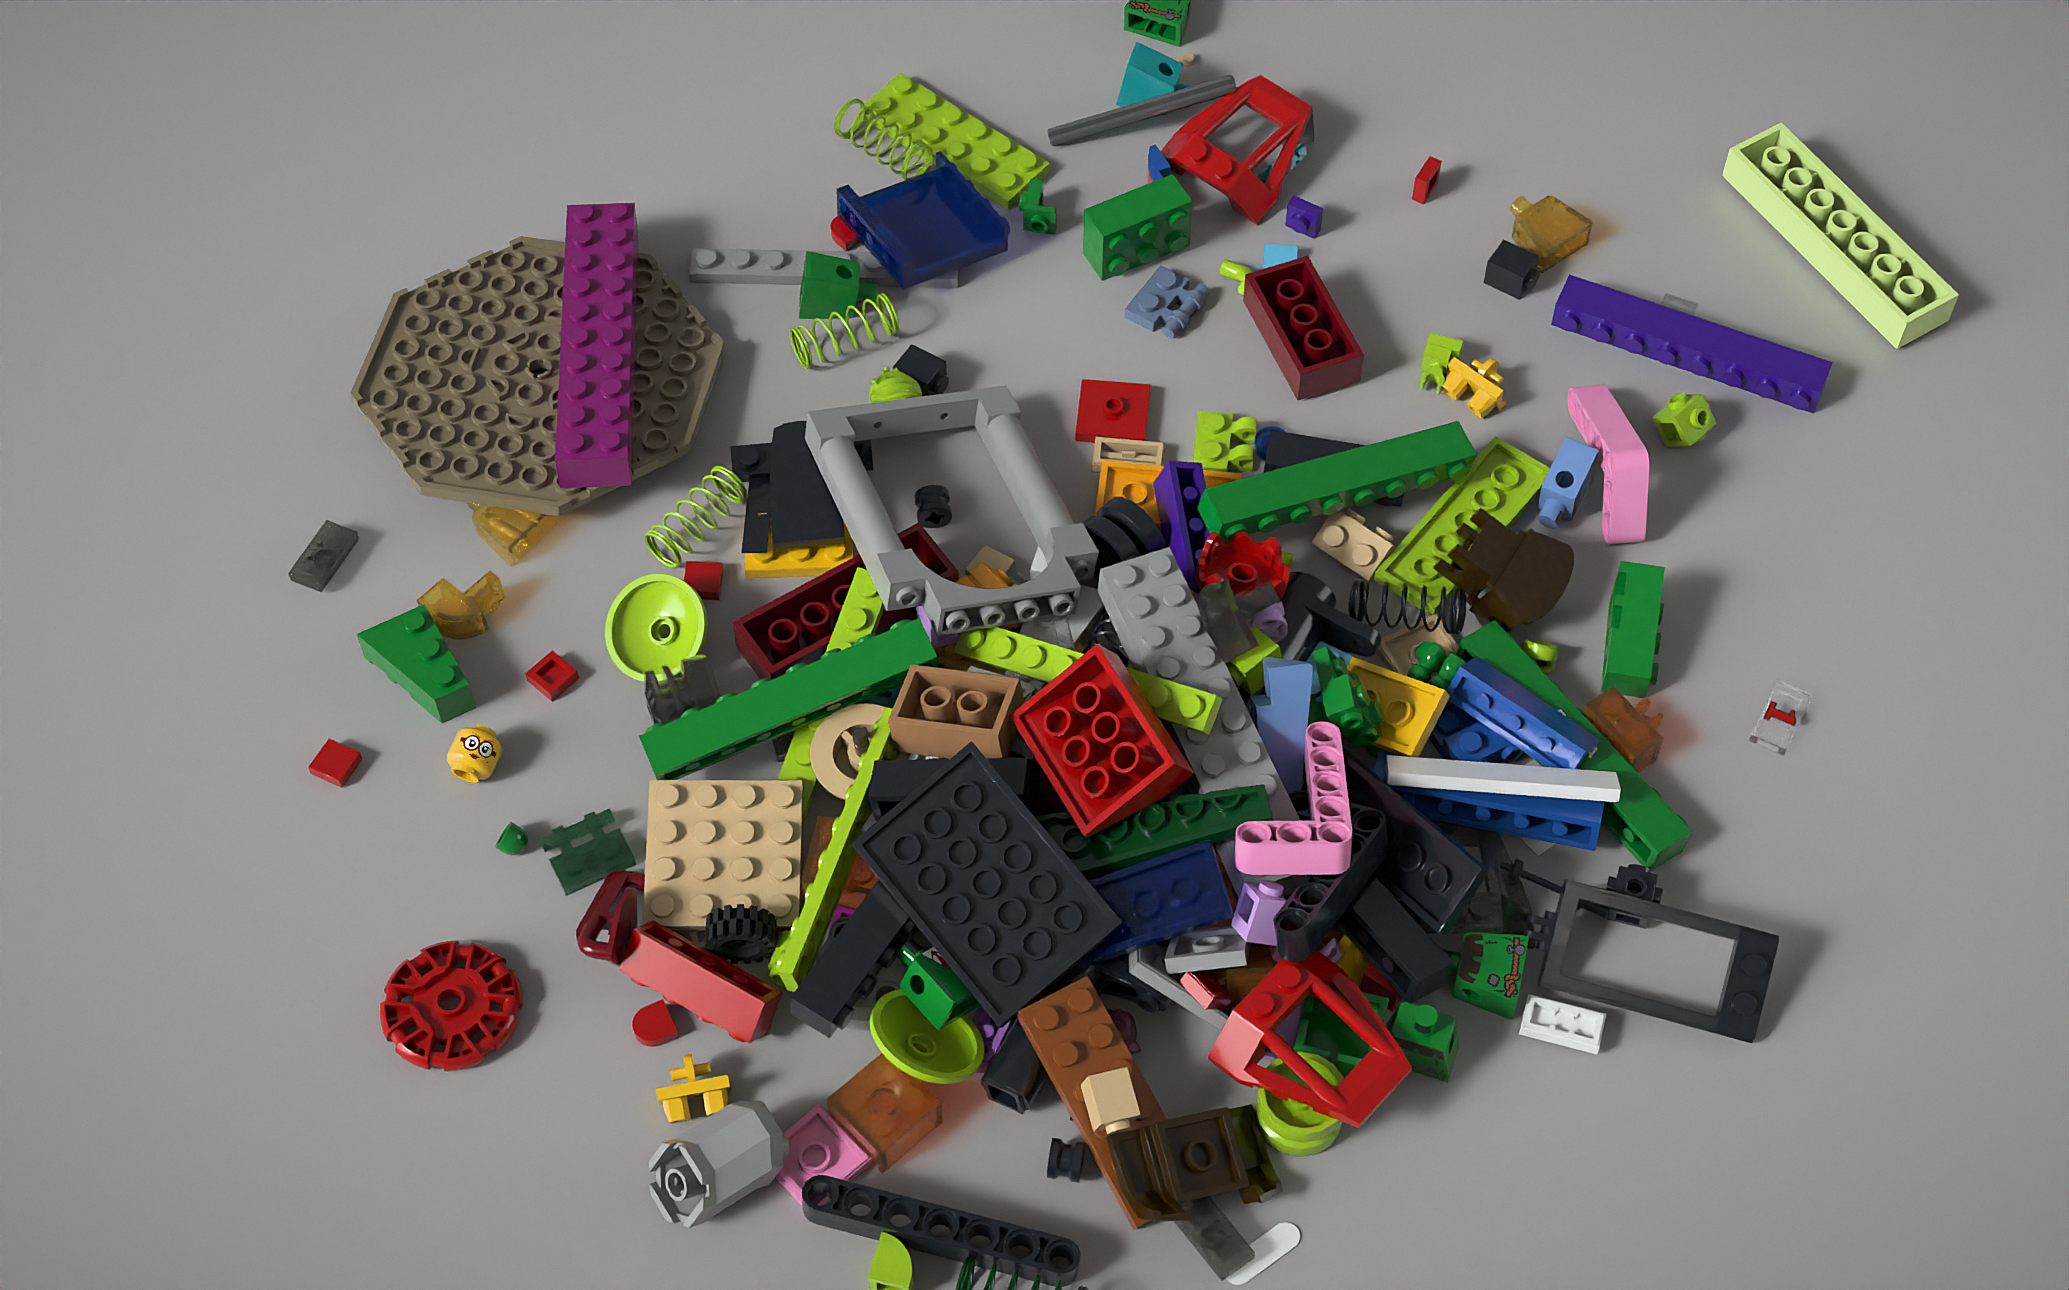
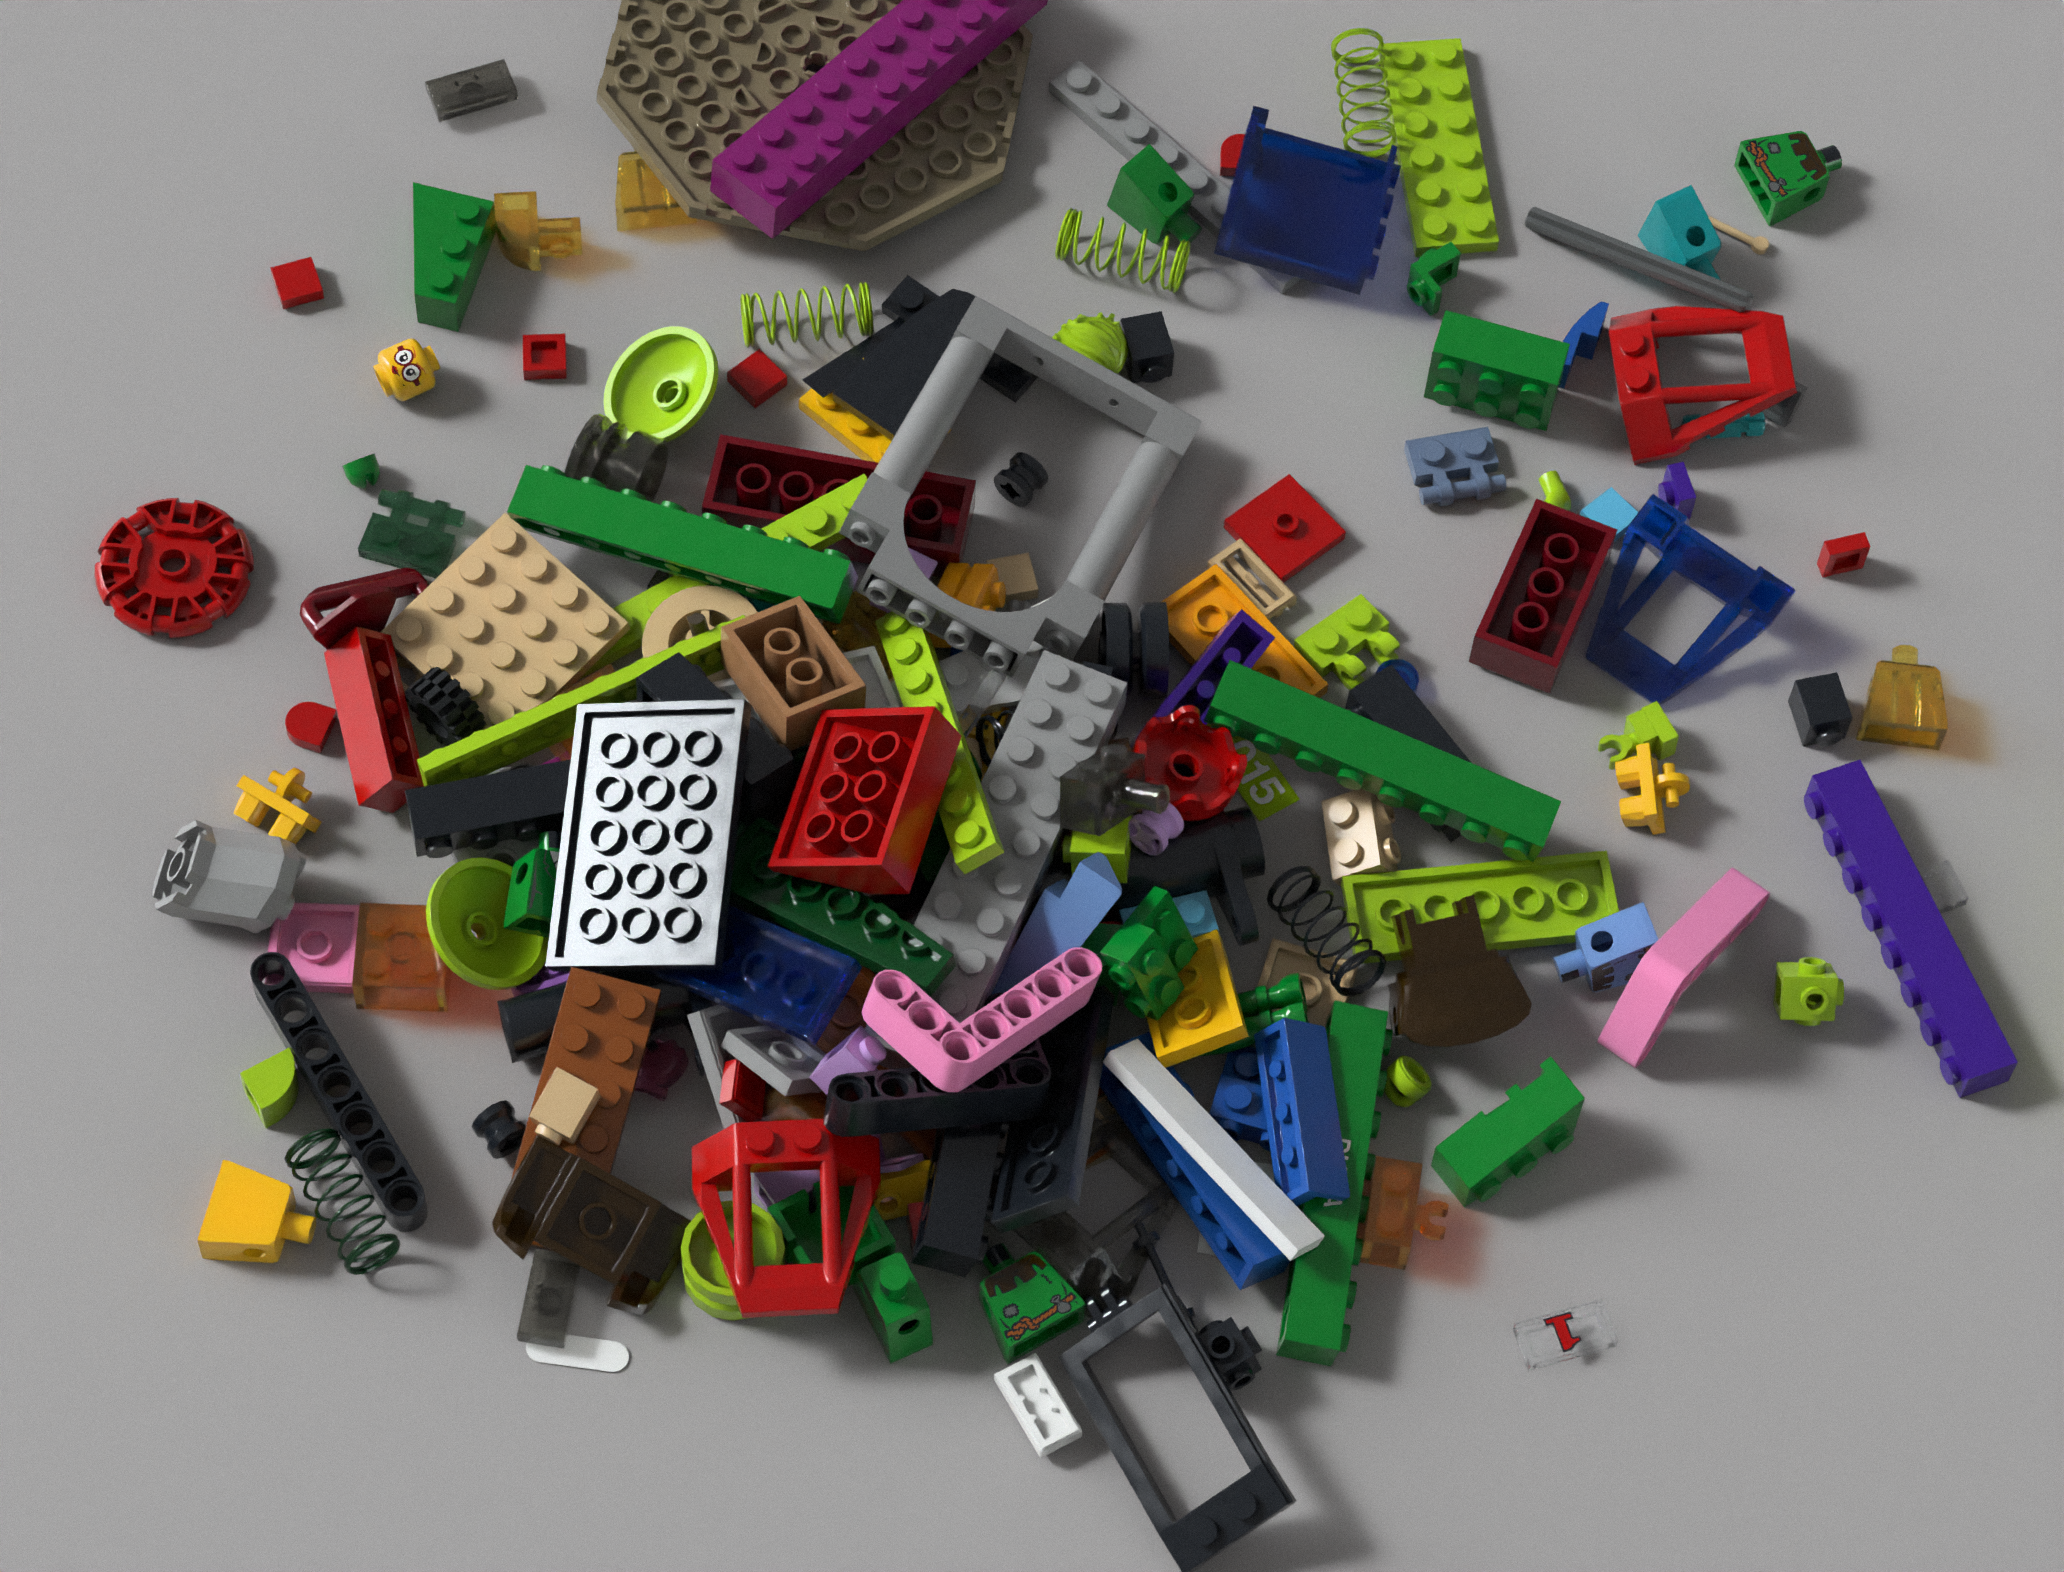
camera: 40 degrees right, 5 degrees up
(1377, 242) = (1706, 565): none -> clear blue windscreen

